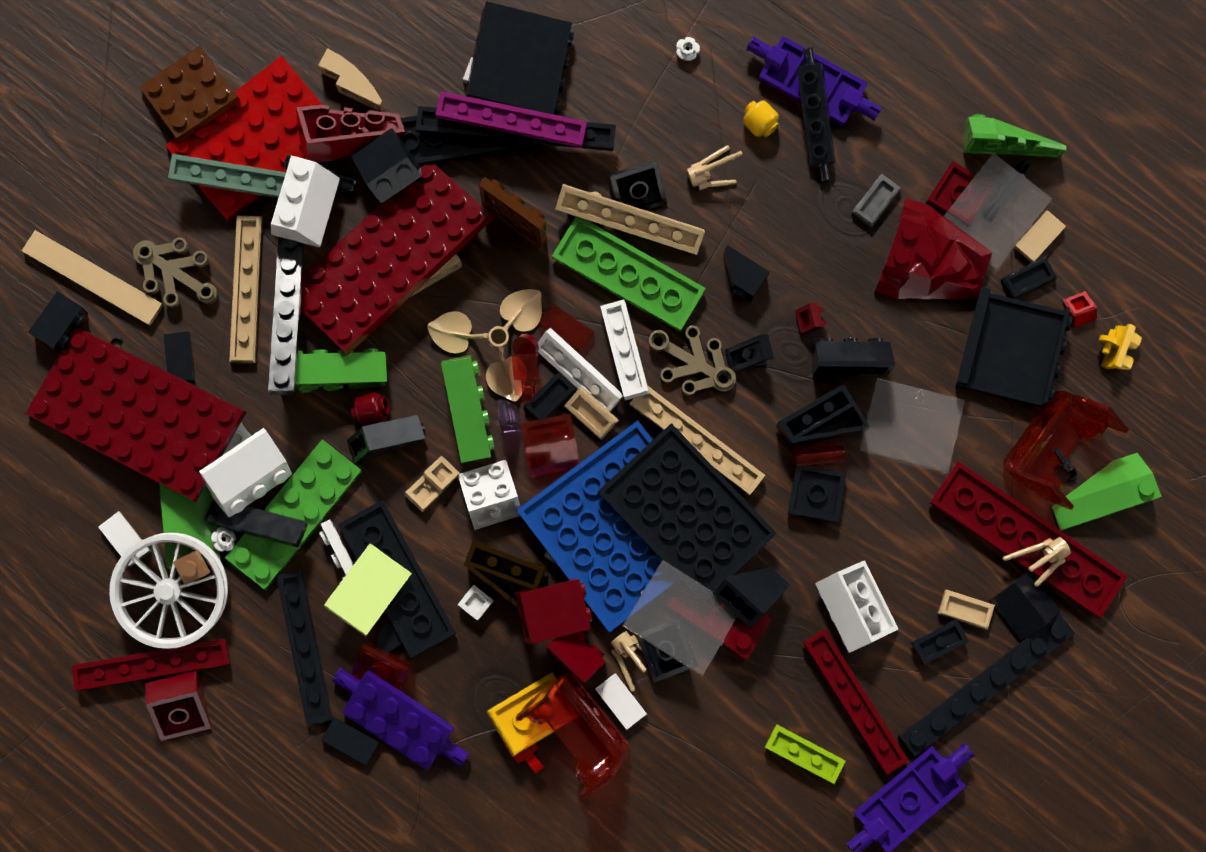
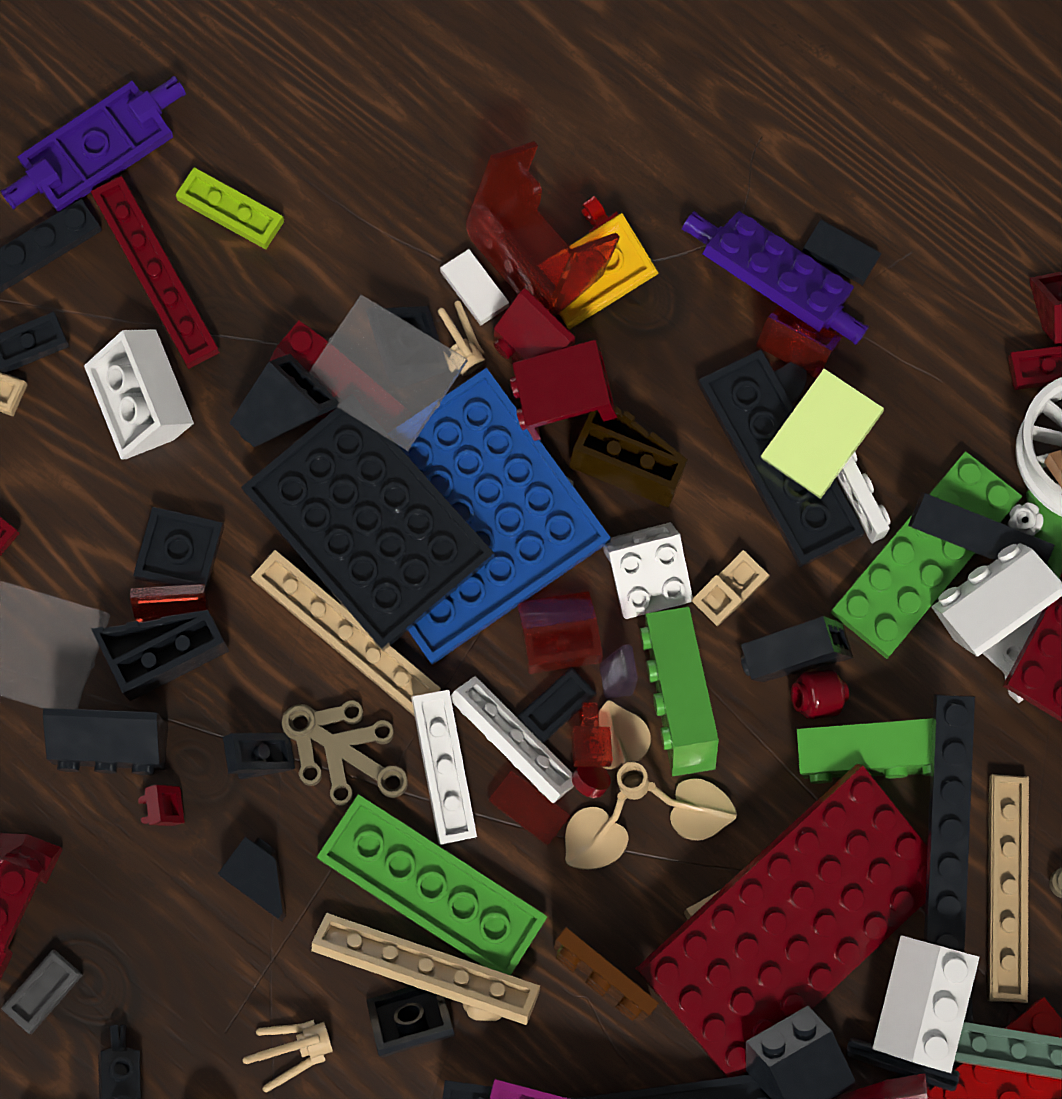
camera: 175 degrees left, 5 degrees down
(304, 648) = (907, 376): black tile -> none
(475, 602) = (670, 421): white plate -> none
(591, 413) = (497, 678): tan tile -> none

